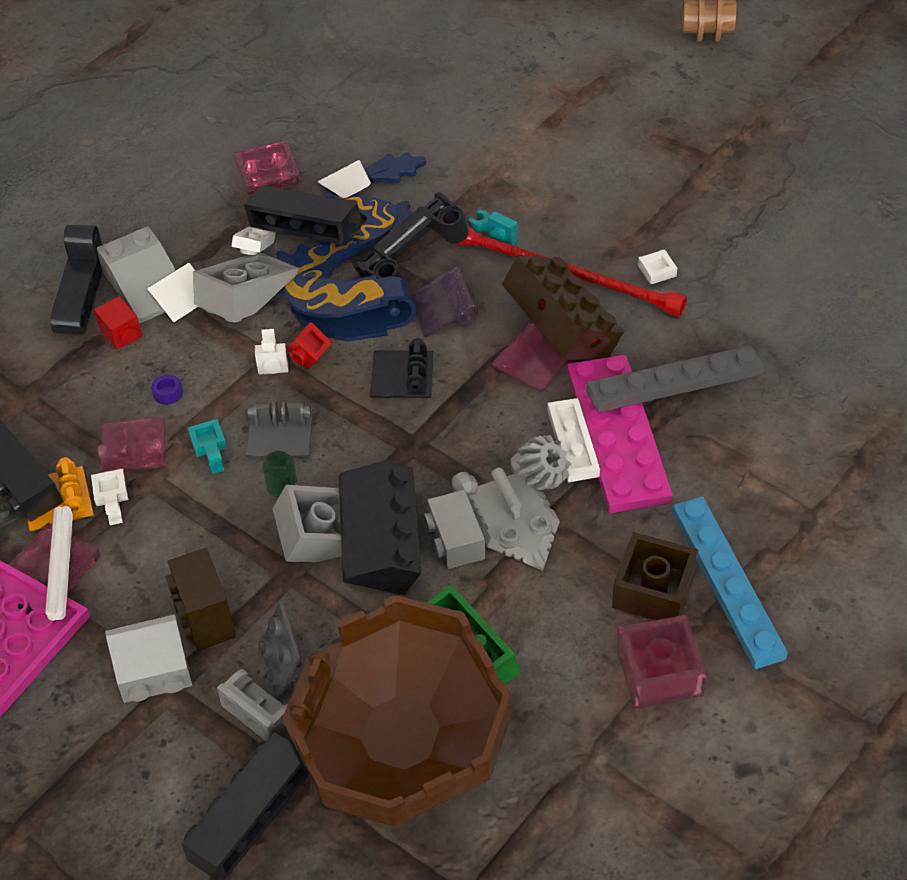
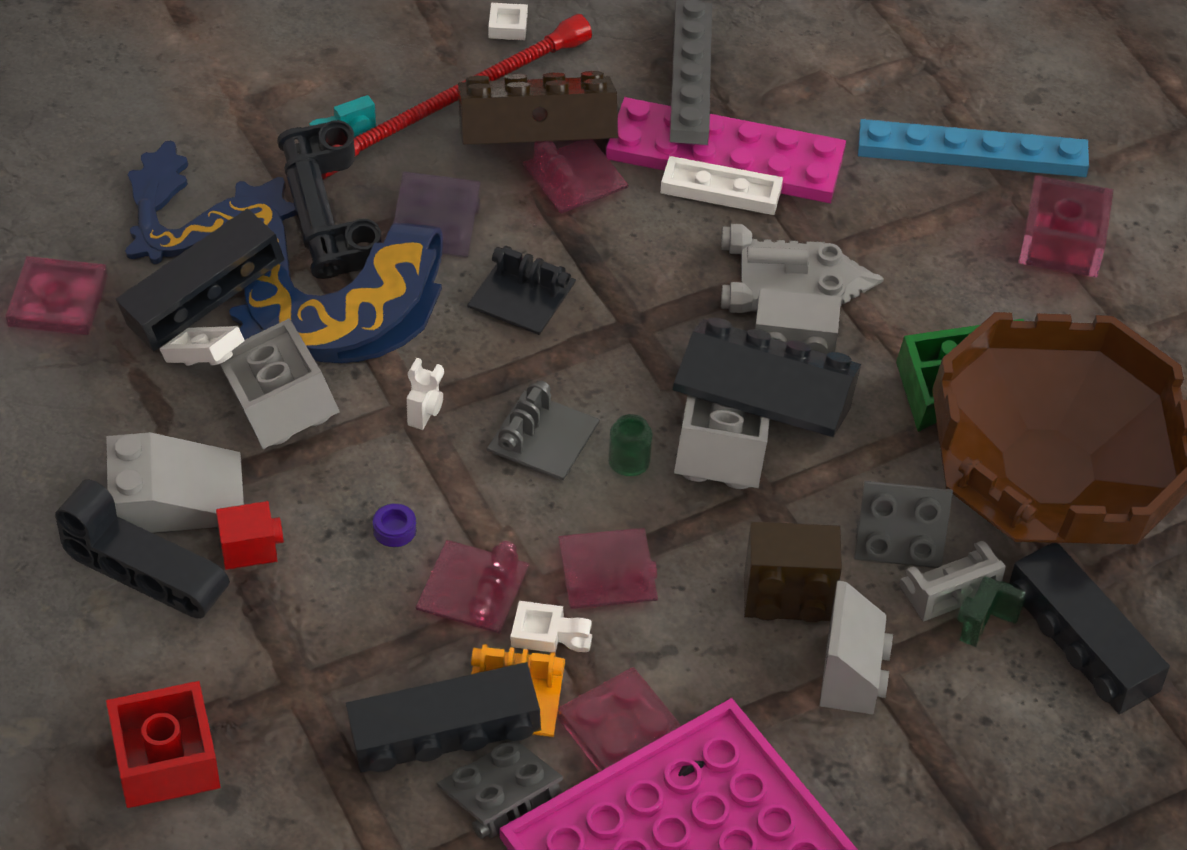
camera: 70 degrees left, 0 degrees up
(59, 563) = (651, 701): white axle -> none
(176, 292) = (231, 455): white sticker -> none
(178, 506) = (608, 568): none -> clear pink hinge
(208, 441) = (520, 503): teal plate -> none
(234, 731) = (990, 599): none -> clear green bracket
(308, 346) = (425, 348): red bracket -> none
(347, 180) = (148, 226): white sticker -> none
(543, 462) = (760, 210): light grey gear -> none
(654, 577) = (960, 189): dark brown brick -> none

